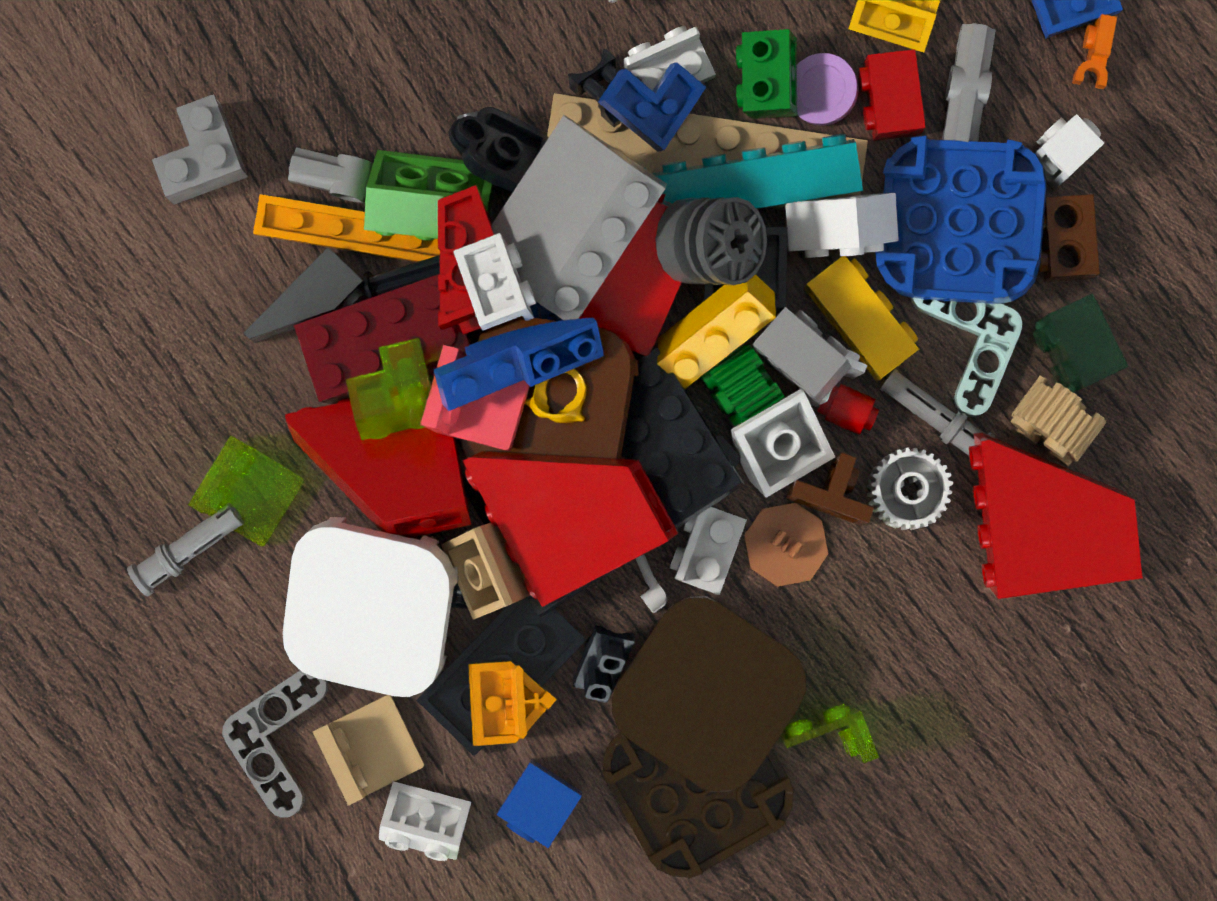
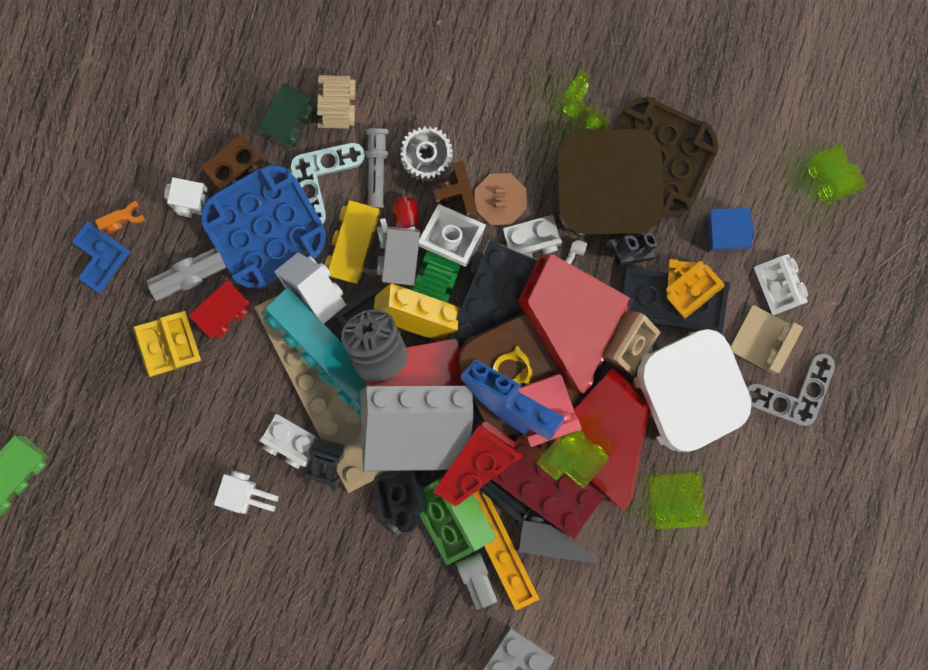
camera: 125 degrees left, 0 degrees up
(171, 558) = (742, 515): light grey pin -> none
(493, 281) = (479, 442): white bracket -> none
(655, 113) = (322, 428): blue plate -> none
(768, 74) = (257, 384): green brick -> none
(825, 89) = (243, 350): lavender piece -> none
(1049, 524) = (392, 68): red slope -> none

